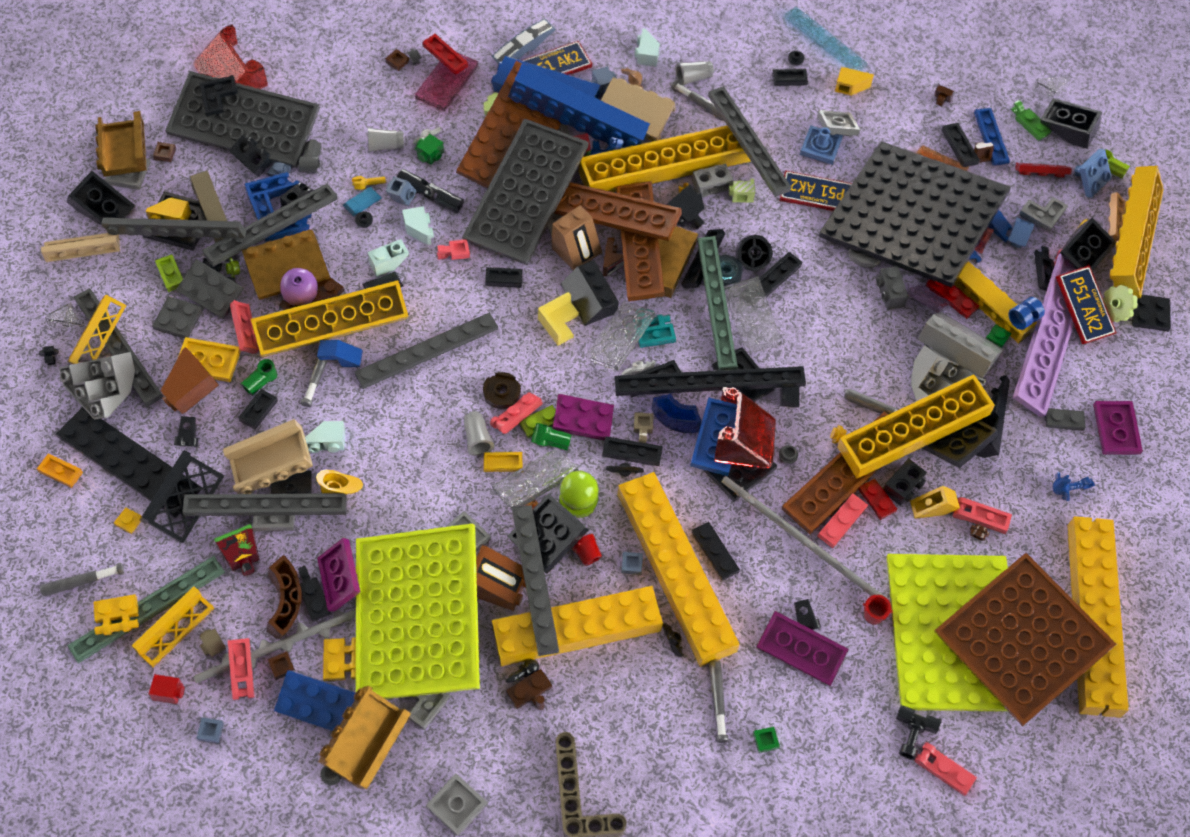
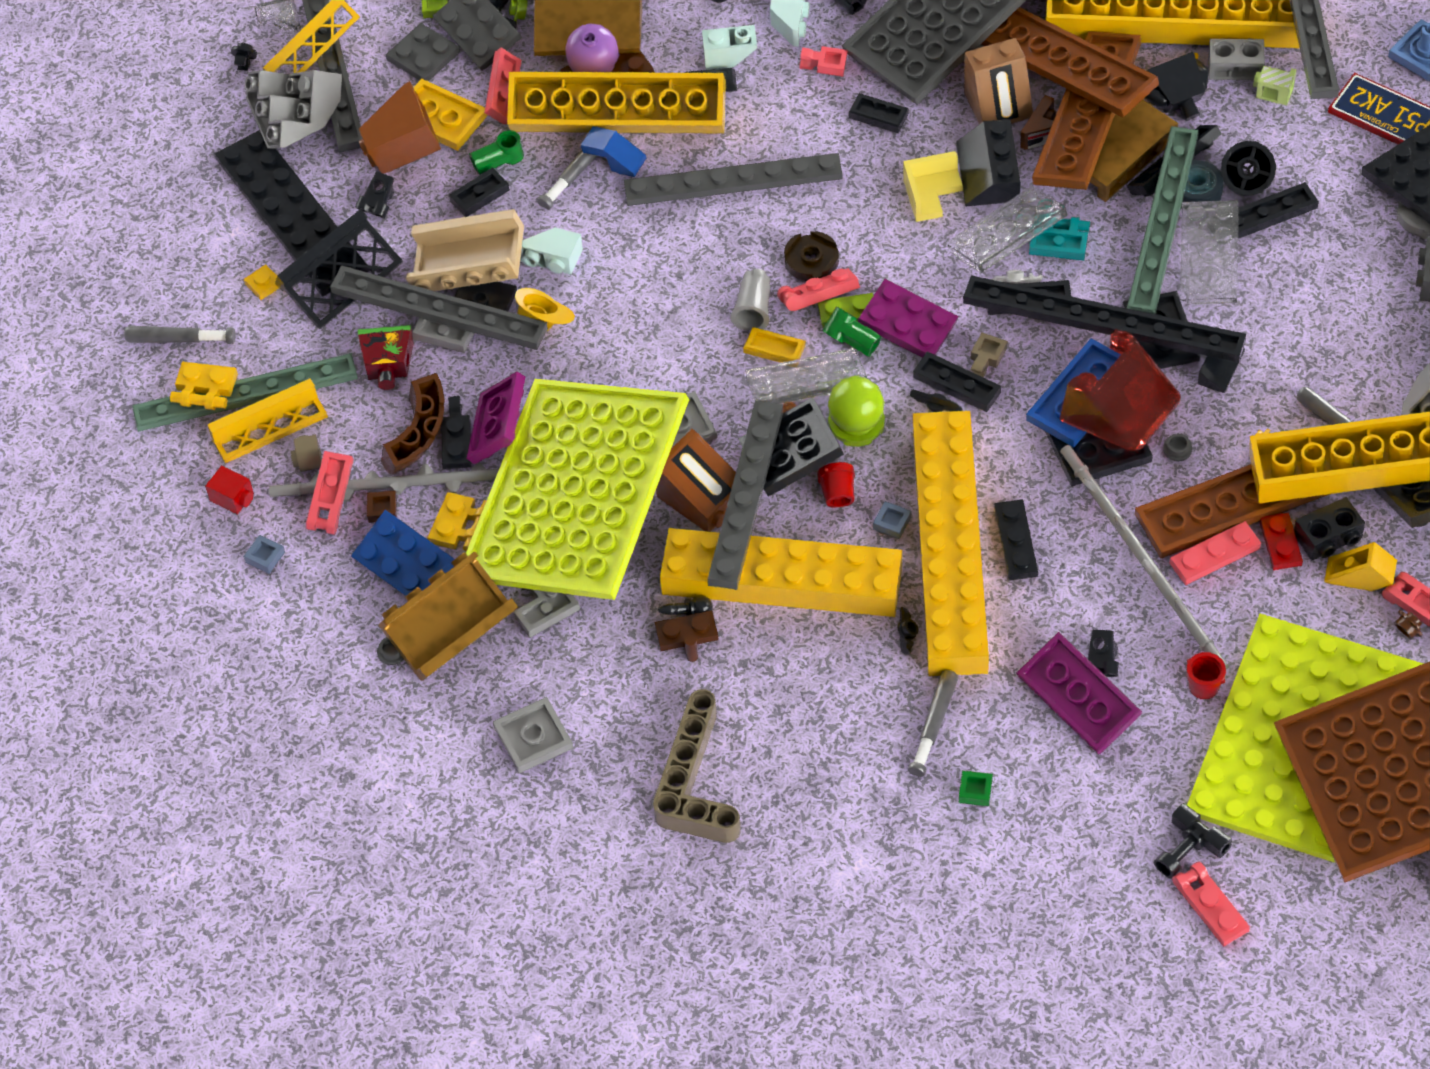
camera: 30 degrees right, 5 degrees down
(59, 470) = (202, 198): light orange plate -> none
(676, 415) = (1035, 349): clear blue brick -> none

